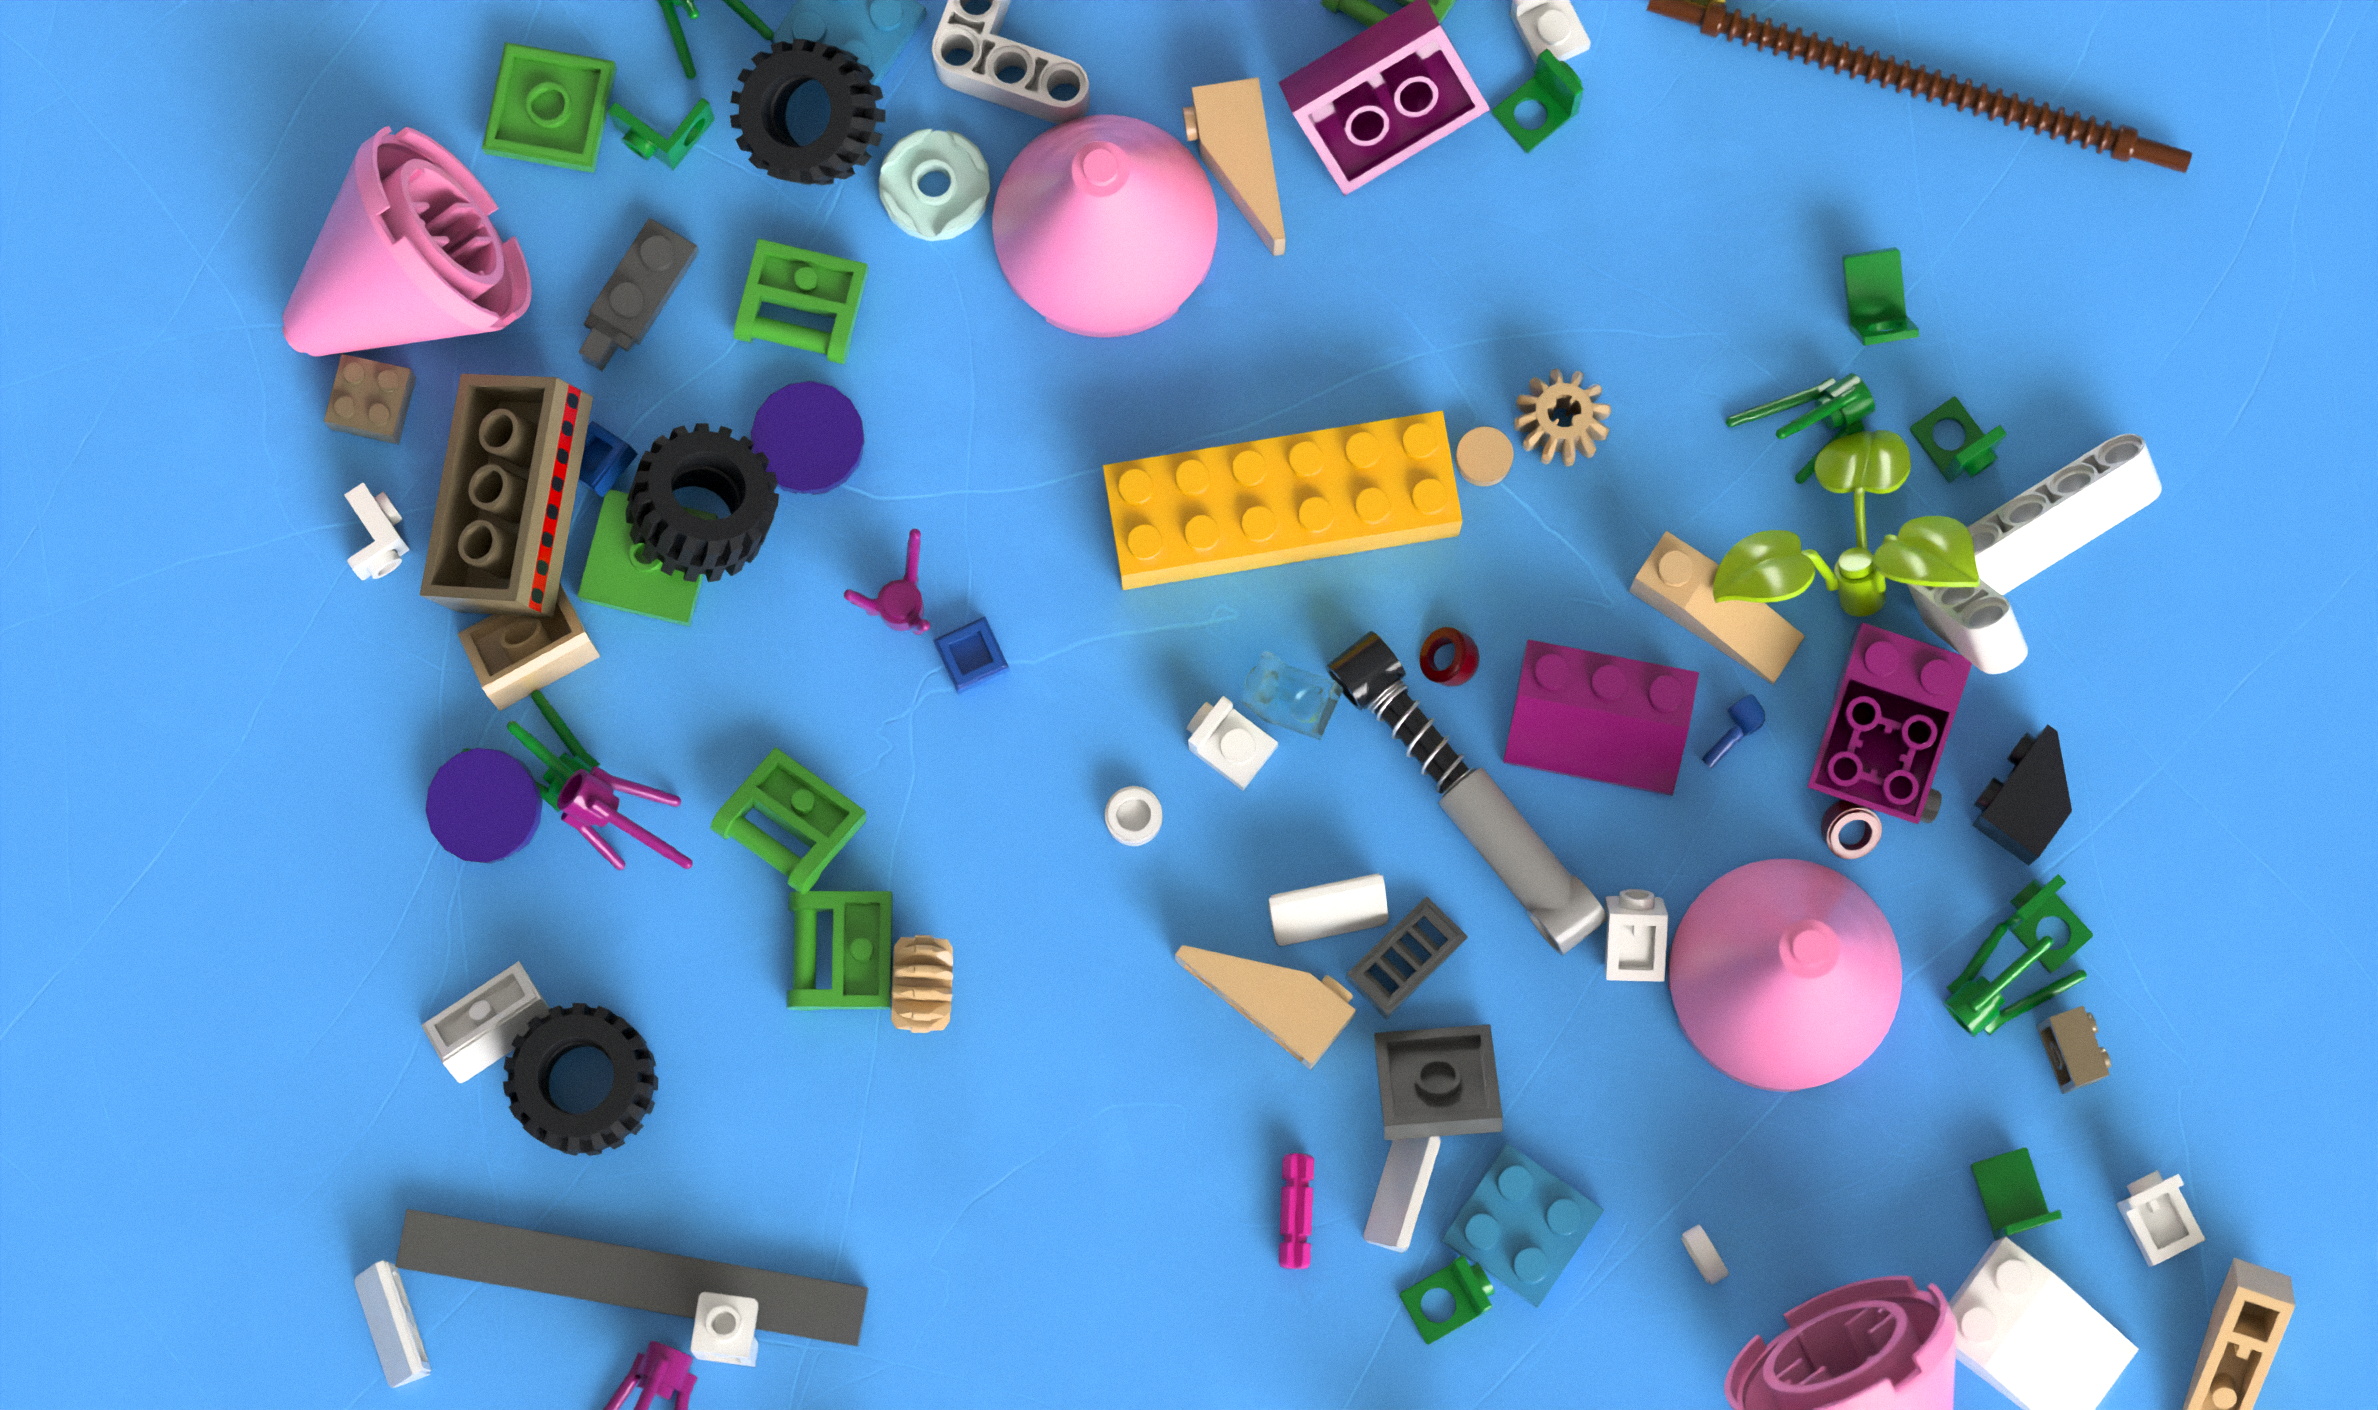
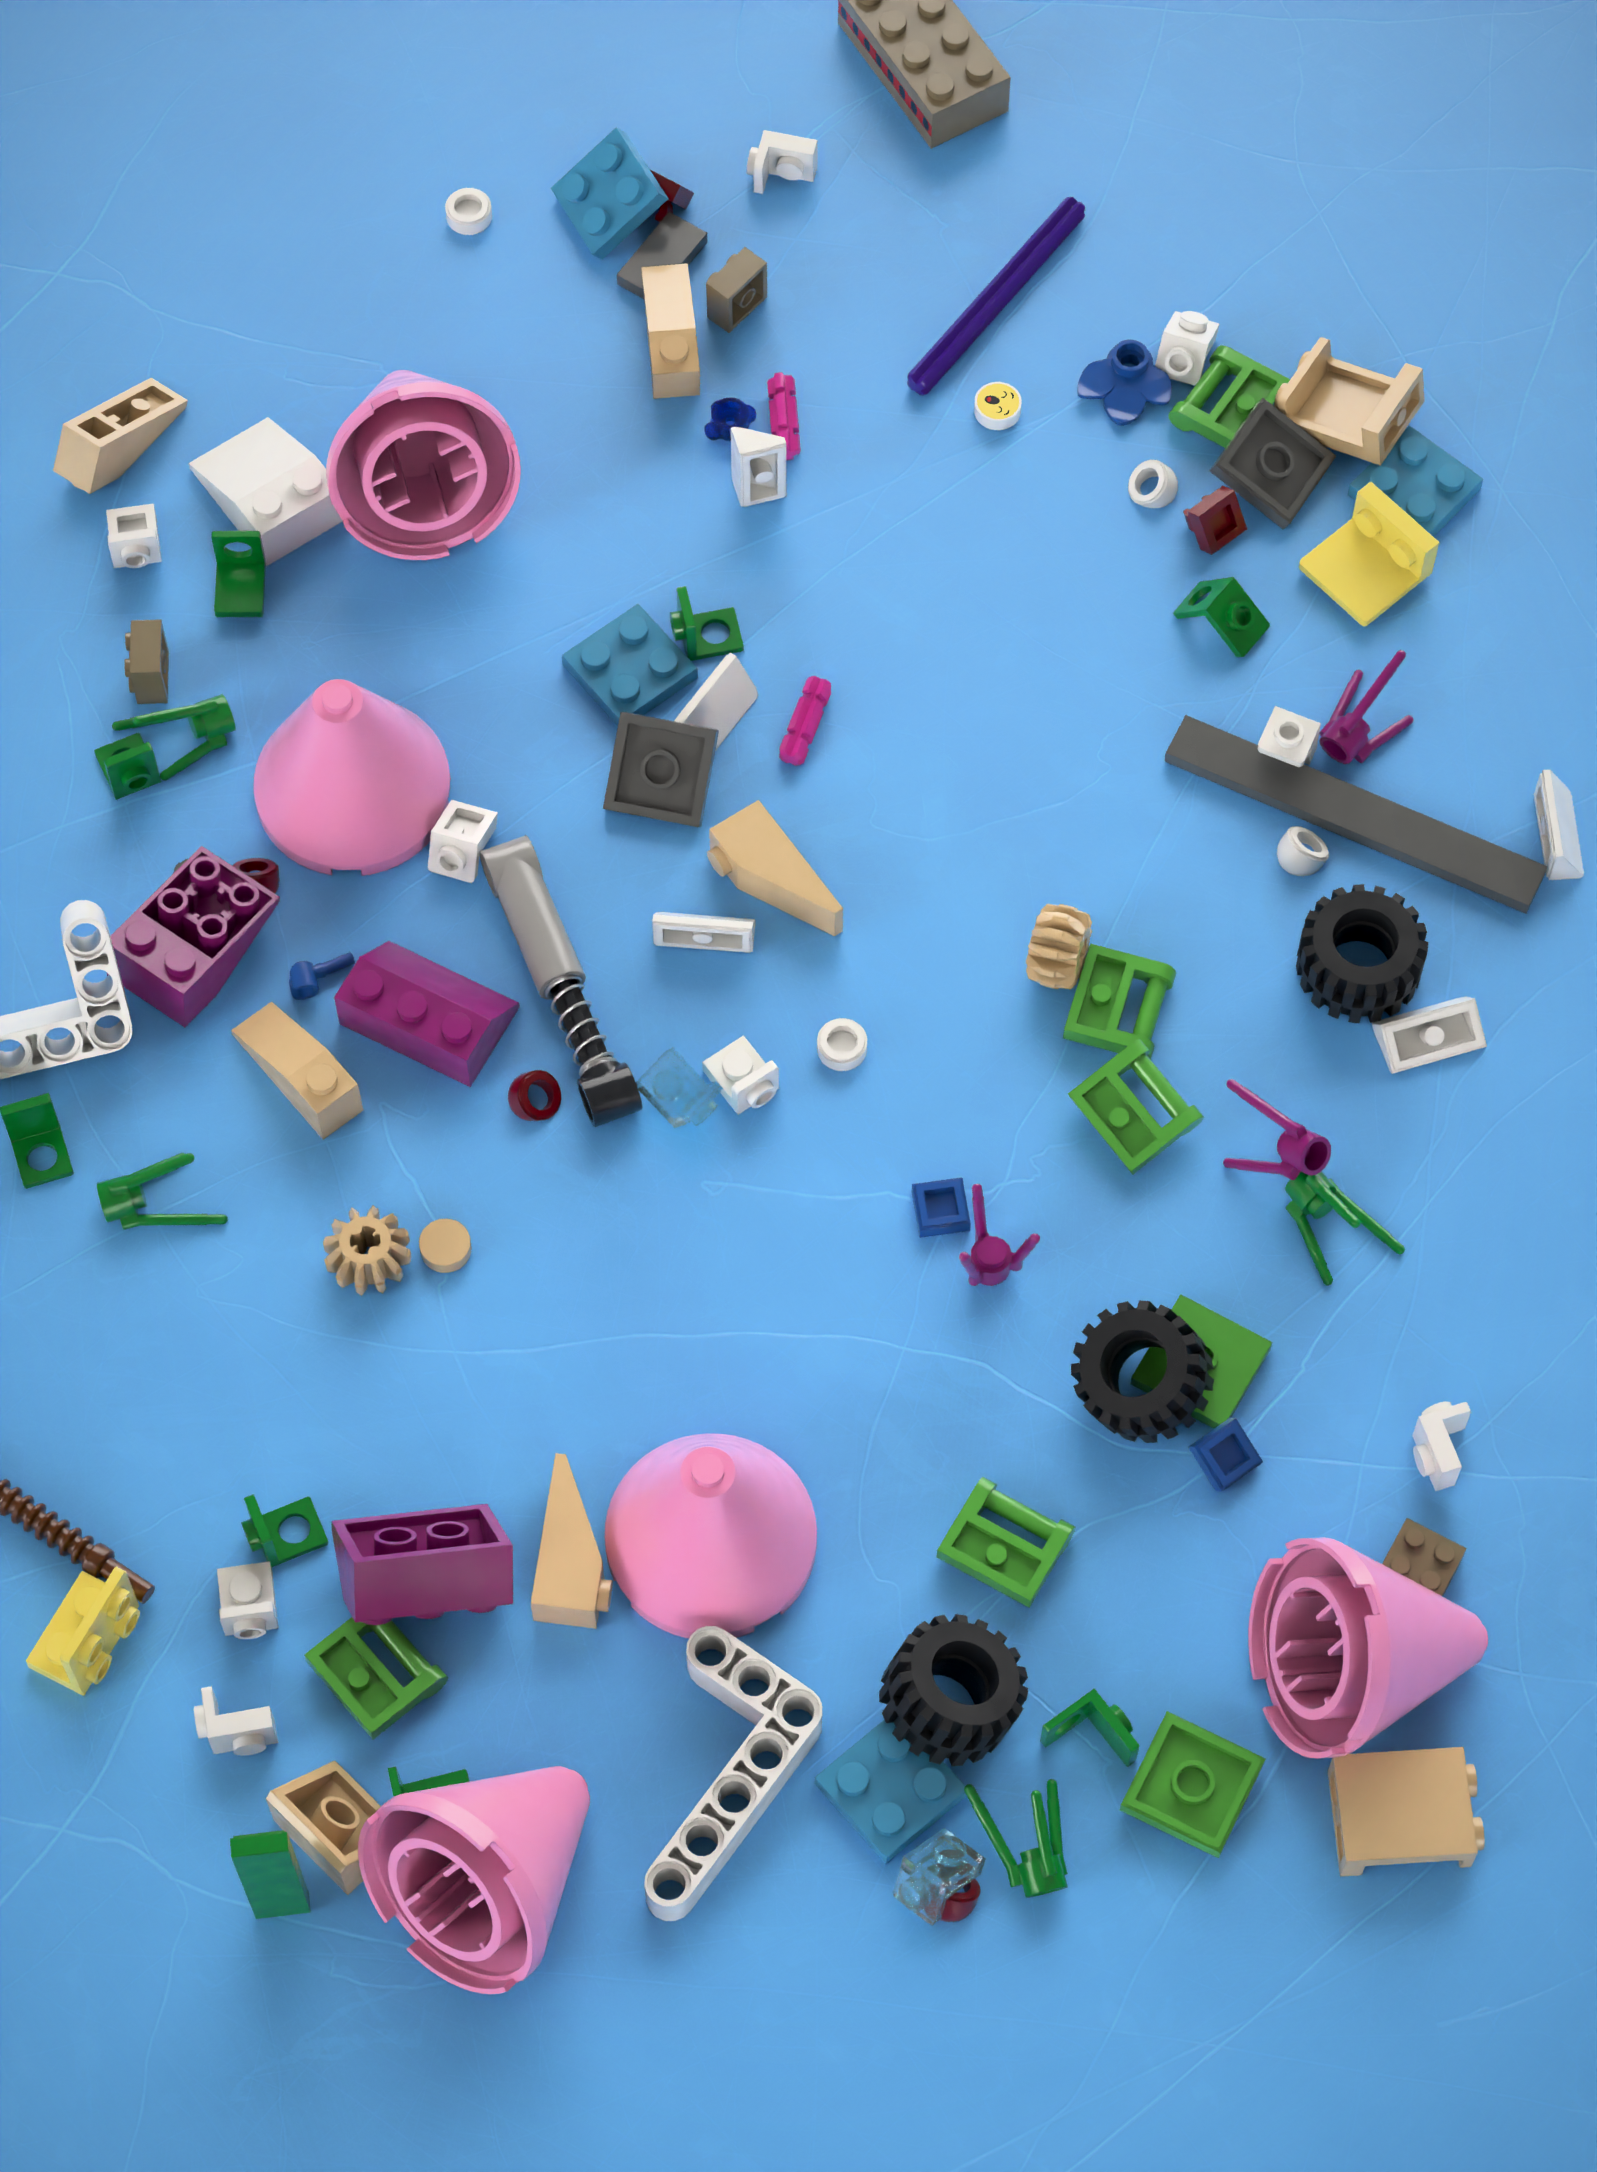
camera: 165 degrees left, 15 degrees down
(318, 127) = (1404, 1808): none -> tan panel
(483, 805) = (1395, 1194): dark purple tile -> none
(506, 495) = (1315, 1423): dark tan brick -> none
(527, 653) = (1325, 1309): tan slope -> none
(636, 292) = (1153, 1596): dark grey hinge -> none
(693, 1202) = (1296, 857): none -> white piece
(809, 437) = (1032, 1424): dark purple tile -> none
(942, 215) = (848, 1647): light aqua tile -> none
(1282, 500) = (633, 1246): yellow brick -> none
(1372, 990) = (661, 852): dark grey slope -> none
(1704, 1255) = (495, 602): white tile -> none
(1876, 297) = (58, 1273): green bracket -> none
(1925, 552) = (243, 1053): lime plant -> none
(2031, 801) = (102, 850): black slope -> none

